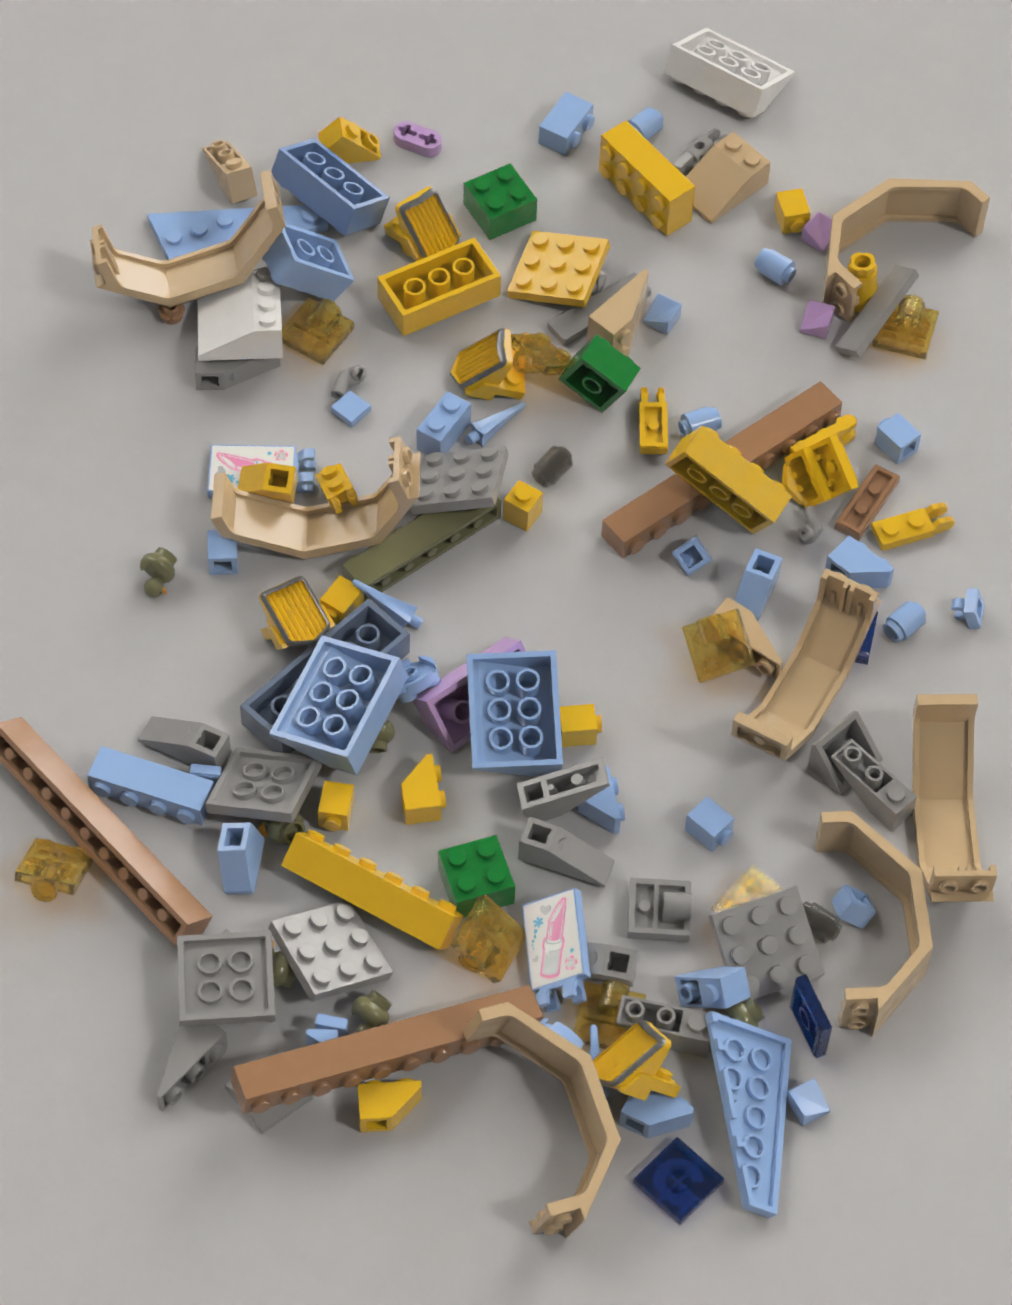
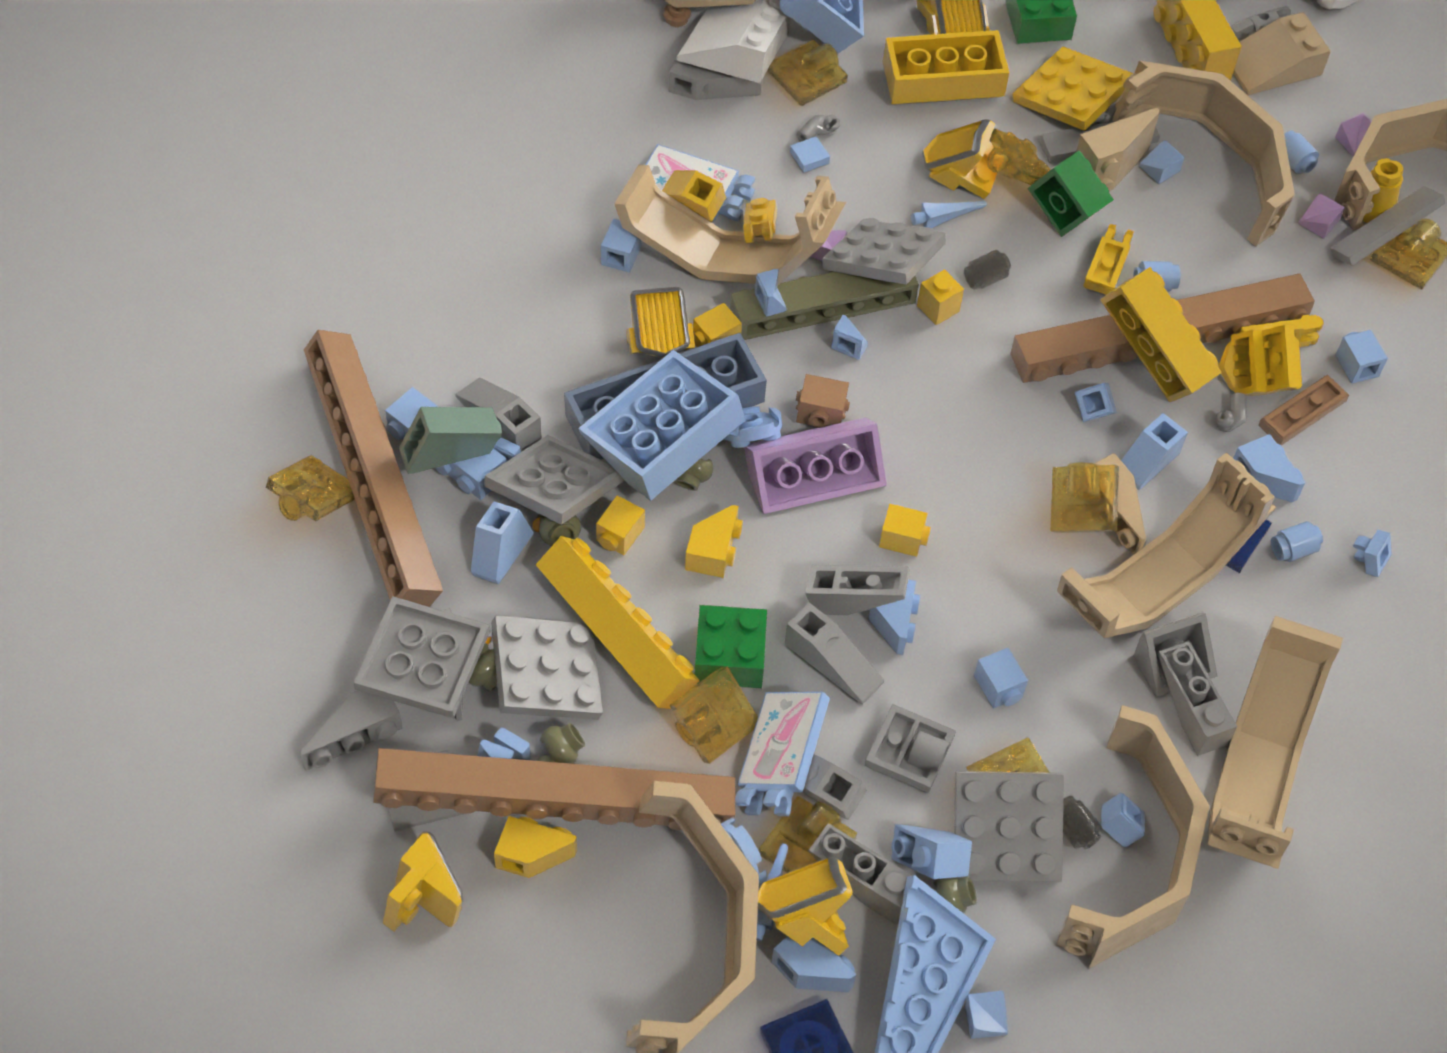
camera: 20 degrees right, 0 degrees up
(159, 780) = (448, 436): none -> sand green slope
(161, 569) = (553, 240): olive animal -> none
(315, 1164) = (426, 881): none -> yellow piece
(376, 555) = (768, 293): none -> light blue slope
(398, 610) = (769, 356): light blue piece -> none
(444, 424) = (894, 195): light blue brick -> none
(459, 570) = (848, 339): none -> light blue slope
(461, 635) = (822, 401): none -> medium nougat head
(514, 712) = (839, 493): light blue slope -> none
(712, 255) = (1230, 116): none -> tan panel
(791, 210) = (1335, 104): yellow brick -> none
(810, 1016) = (1025, 921): clear blue tile -> none
(911, 526) = (1343, 449): yellow hinge -> none

